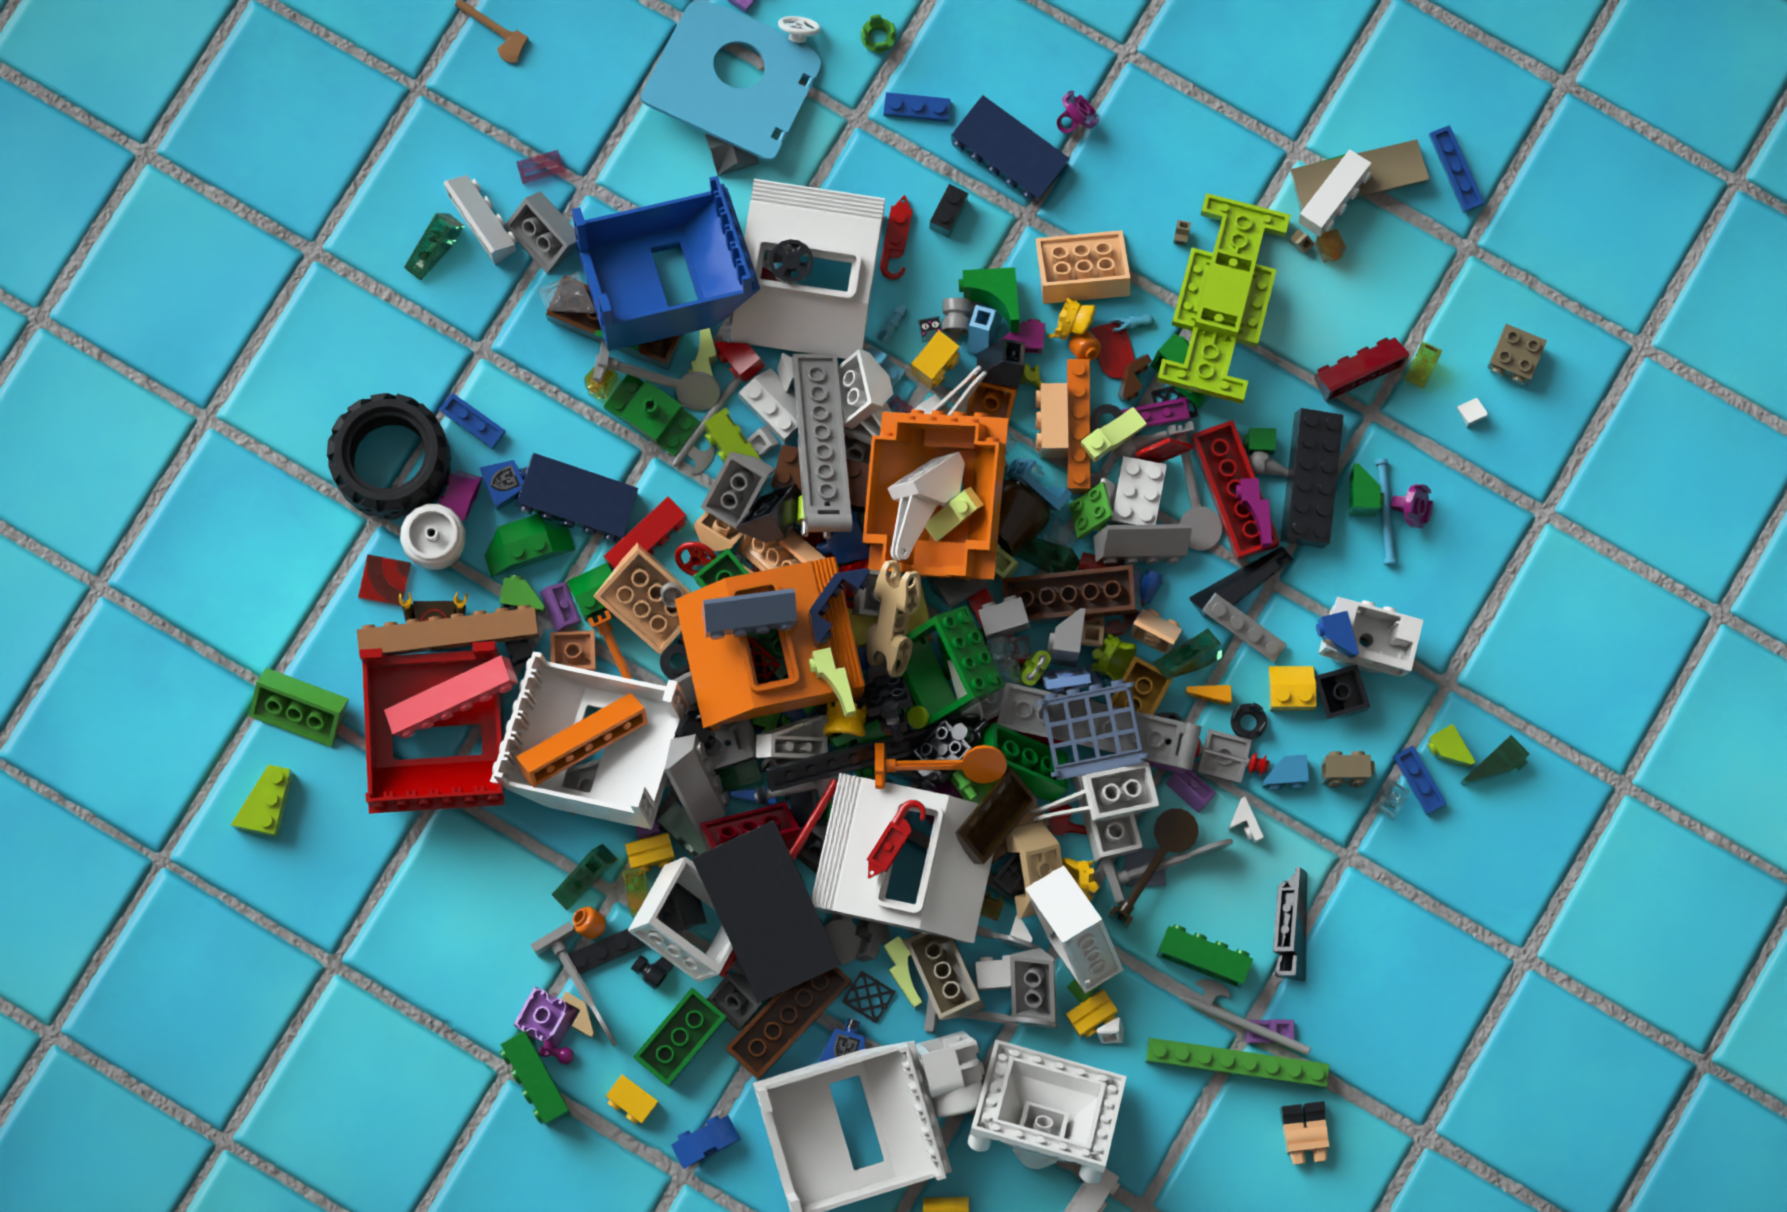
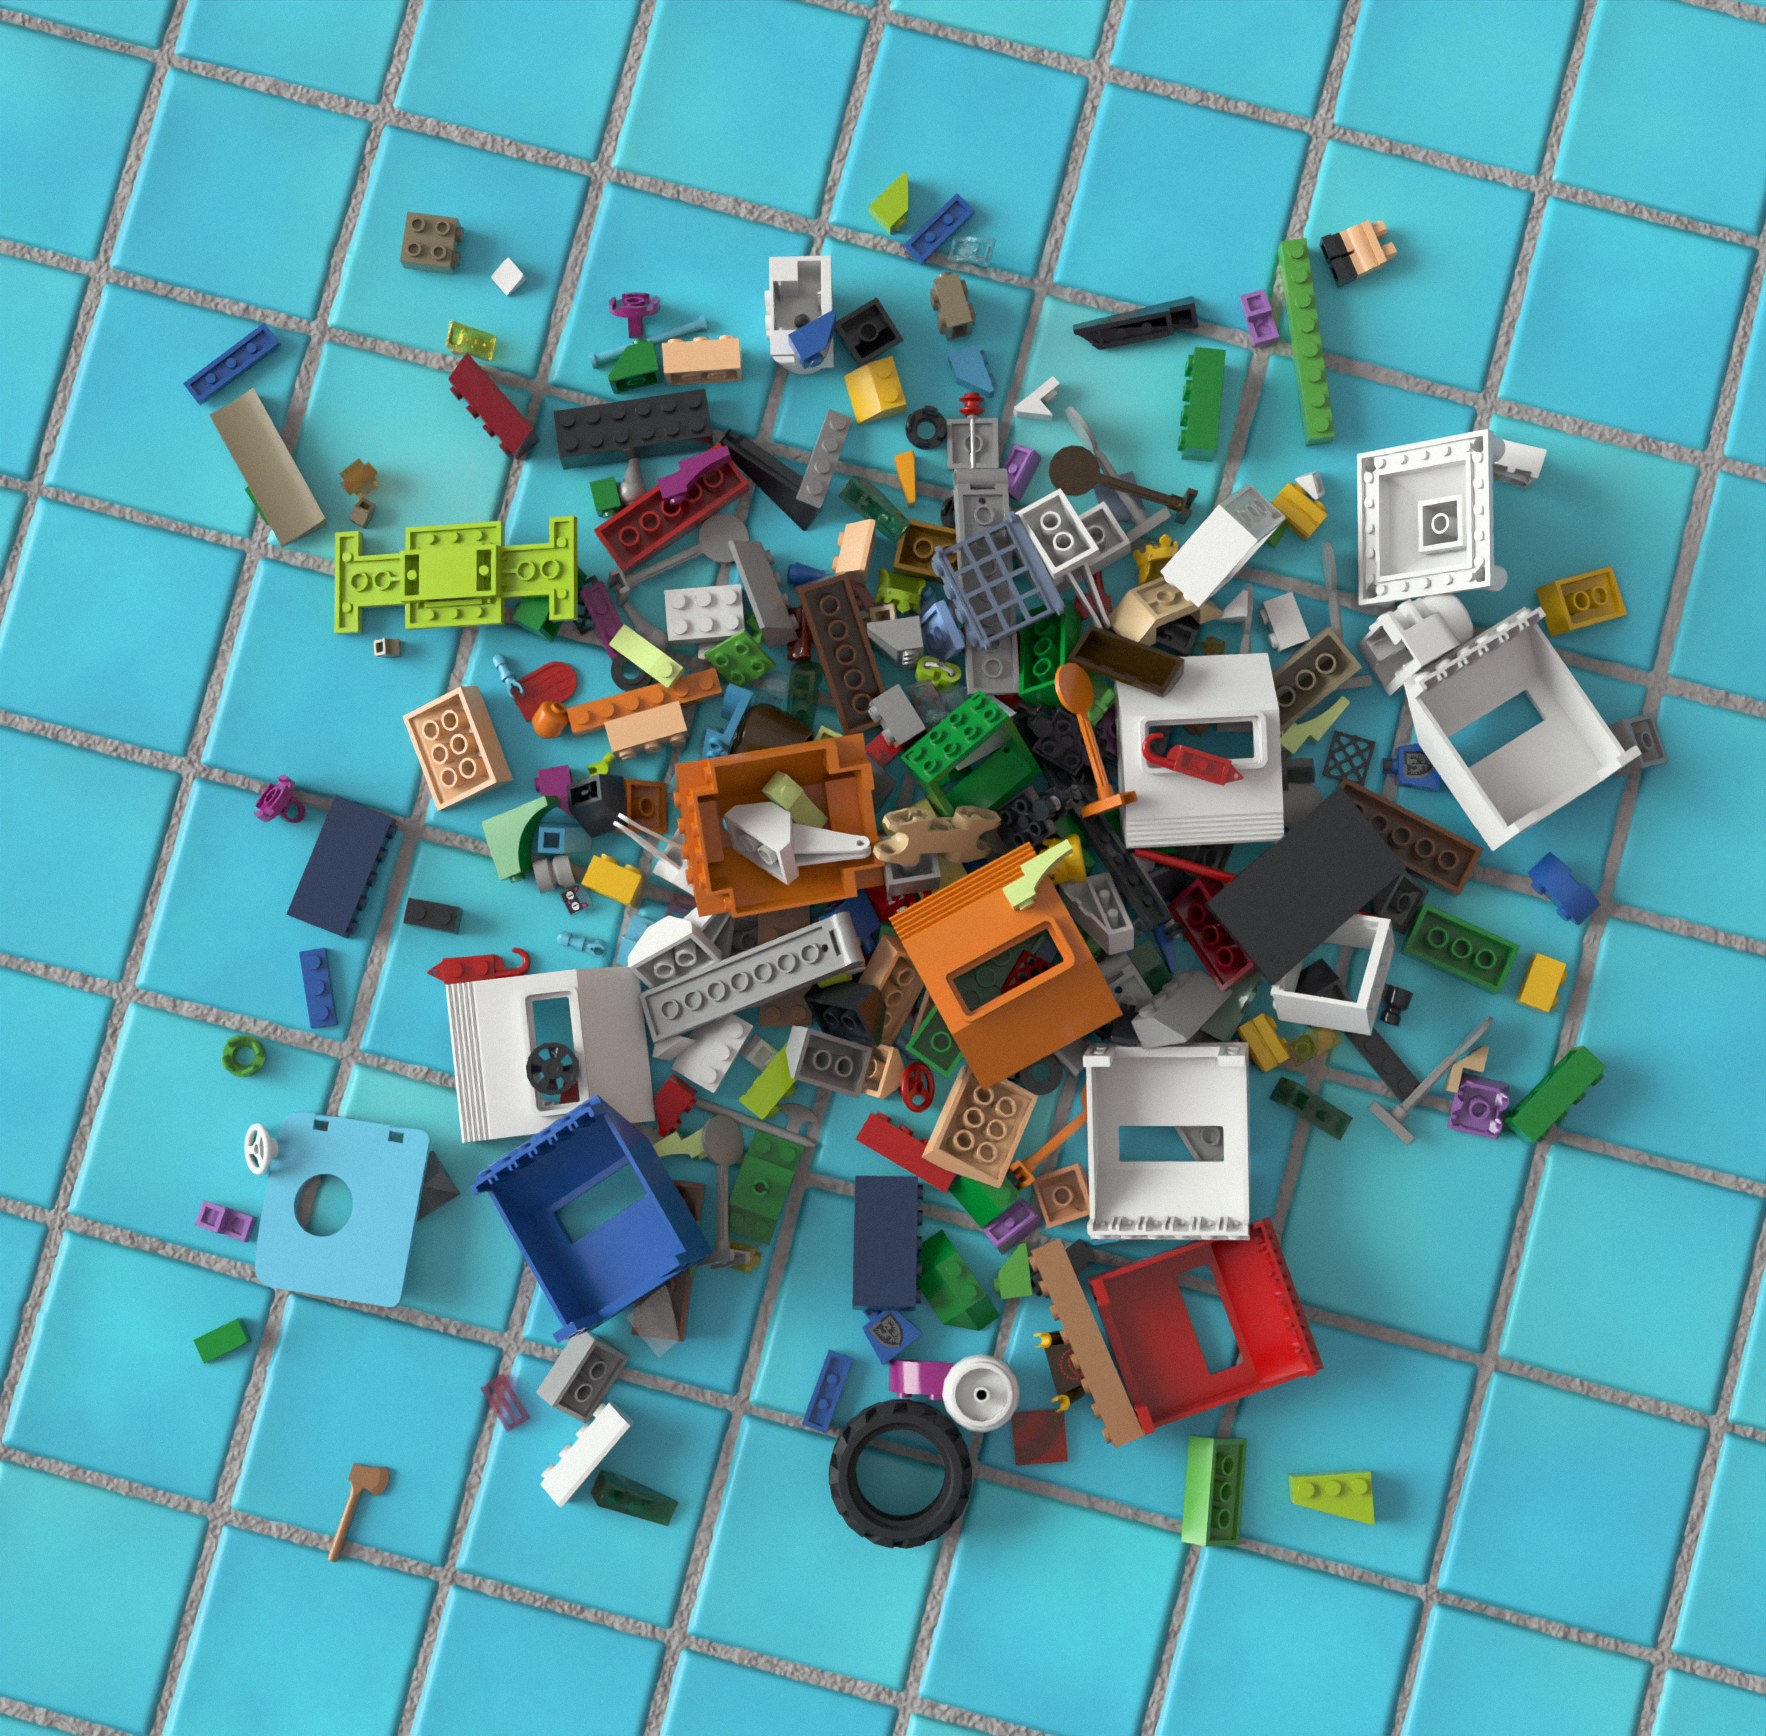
camera: 100 degrees left, 5 degrees up
(451, 696) = (1163, 1315): coral brick -> none
(564, 1055) = (1514, 1072): magenta arm -> none
(581, 739) = (1171, 1150): orange brick -> none
(589, 922) = (1362, 1087): orange head -> none
(670, 592) = (977, 1096): light grey wheel -> none
(749, 613) = (992, 989): sand blue slope -> none
(853, 581) = (980, 909): dark blue slope -> none
(918, 717) = (1037, 779): lime piece -> none
(1033, 985) = (1291, 577): light grey slope -> none
(1074, 319) = (524, 738): yellow hair -> none
(1130, 384) = (580, 659): reddish brown slope -> none
(1163, 450) = (650, 598): red window -> none
(1213, 990) = (1231, 389): light grey piece -> none
(1335, 193) = (298, 484): white brick -> none
(1355, 549) = (702, 361): none -> light nougat brick
(1499, 762) = (892, 147): clear green slope -> none

